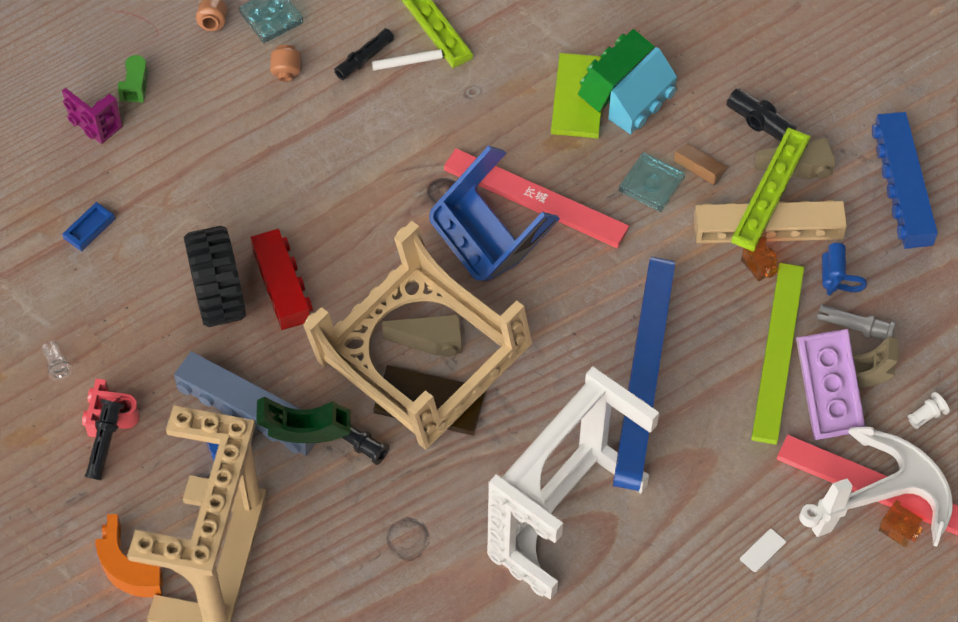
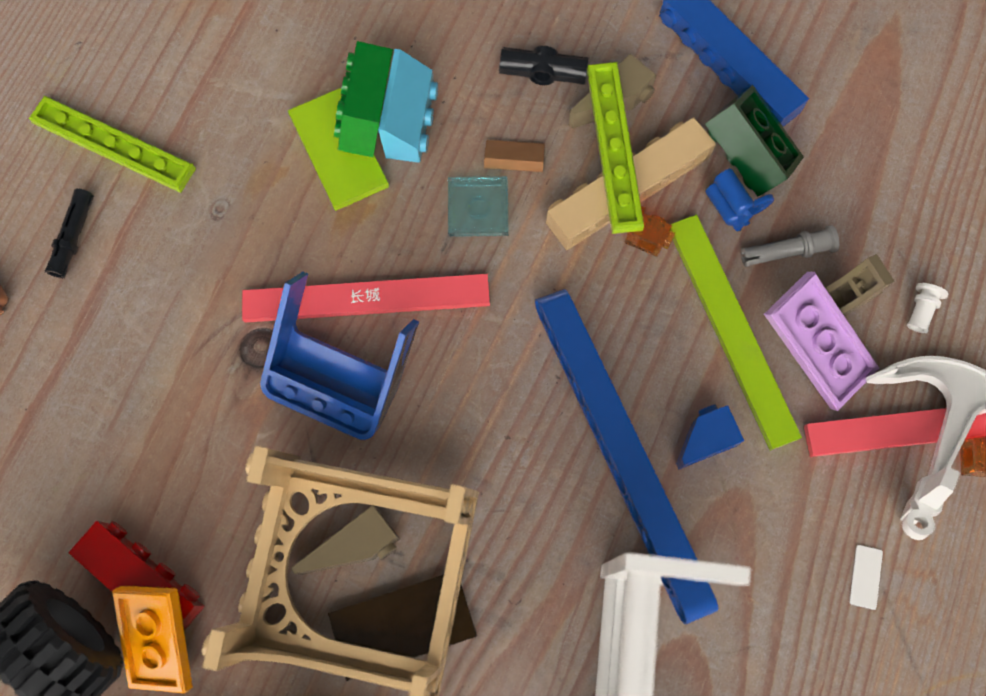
camera: 30 degrees left, 15 degrees up
(272, 311) = (152, 638): none -> light orange tile
(407, 59) = (123, 212): white bar -> none
(710, 404) = (709, 435): none -> blue slope
(877, 238) = (754, 141): none -> dark green slope

